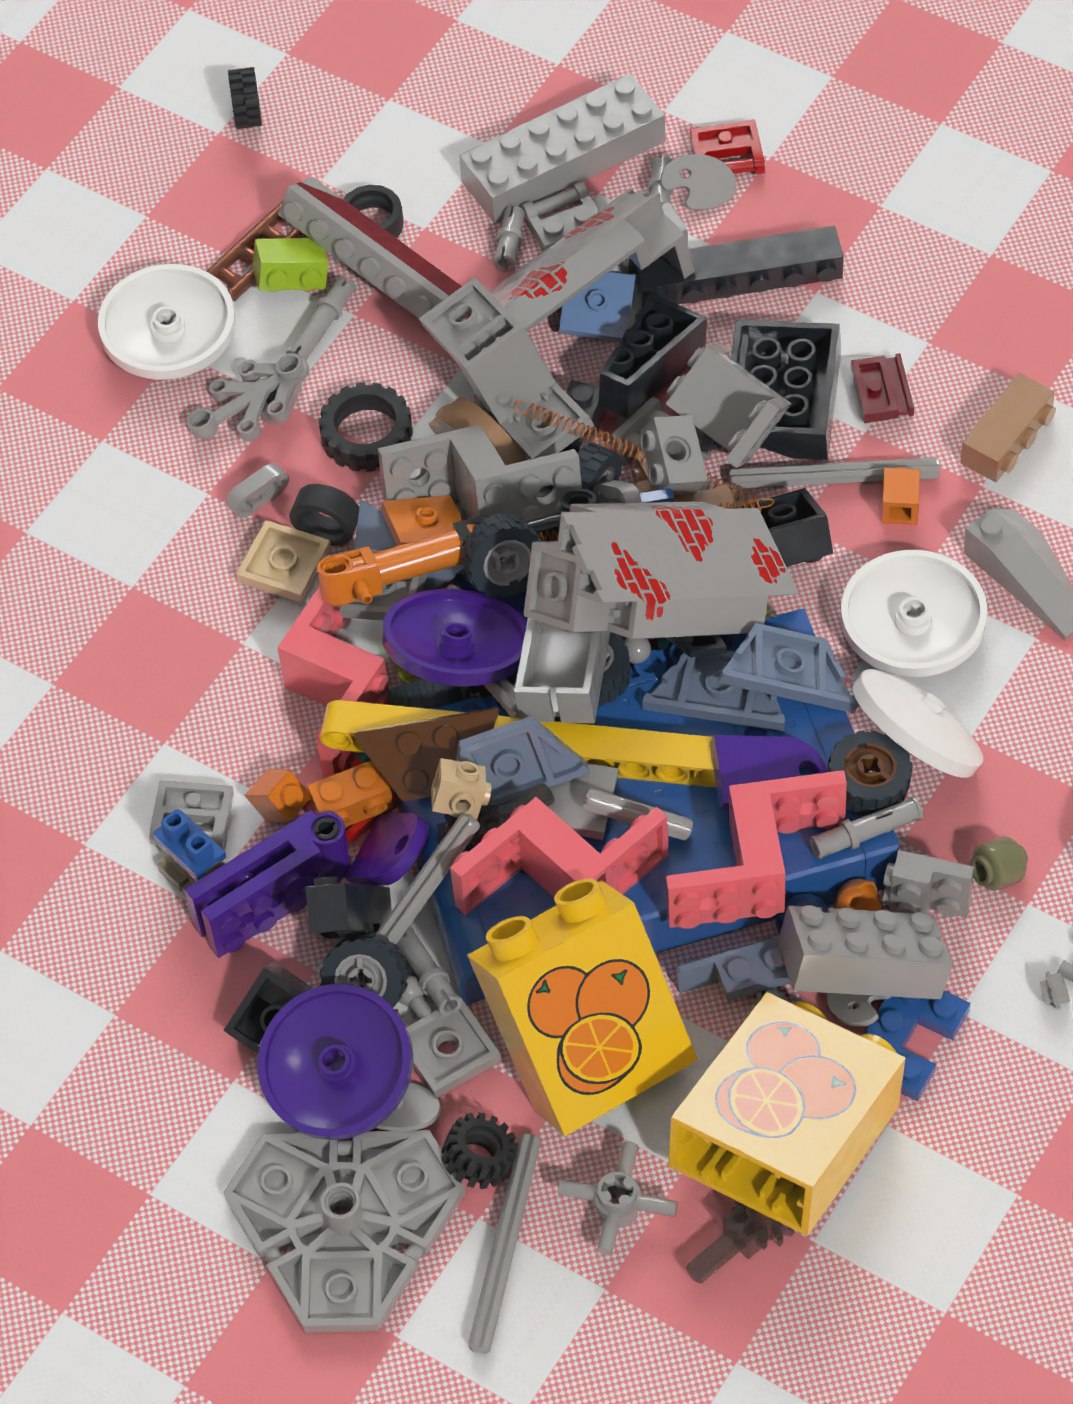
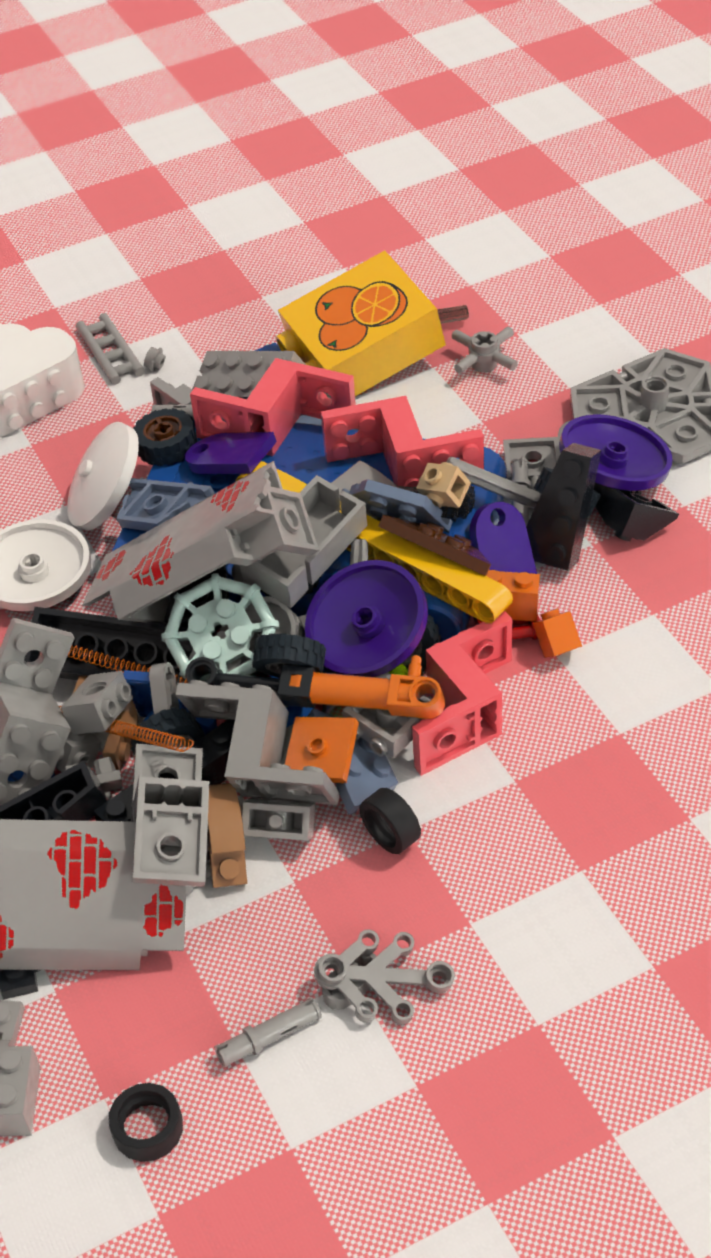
camera: 150 degrees left, 10 degrees down
(166, 321) = (414, 1092): white dish -> none
(187, 851) = (647, 607): blue hips -> none
(199, 802) = (618, 663): light grey plate -> none
(243, 250) = (253, 1175): copper bar -> none
(257, 490) = (429, 888): light grey beam -> none
(267, 881) = (600, 574): dark purple hinge -> none
(283, 561) = (448, 818): tan plate -> none
(289, 264) = (260, 1089): lime brick -> none
(355, 400) = (308, 933): black tyre -> none
(366, 247) = (182, 1056): light grey brick -> none
(474, 1167) = (550, 396): black tyre -> none
(504, 1244) = (561, 366): light grey axle -> none
(509, 238) = (45, 1027): light grey pin -> none
(582, 1004) = (450, 380): yellow brick -> none
(629, 810) = (330, 460): light grey axle -> none
(999, 863) = (125, 413): olive head -> none

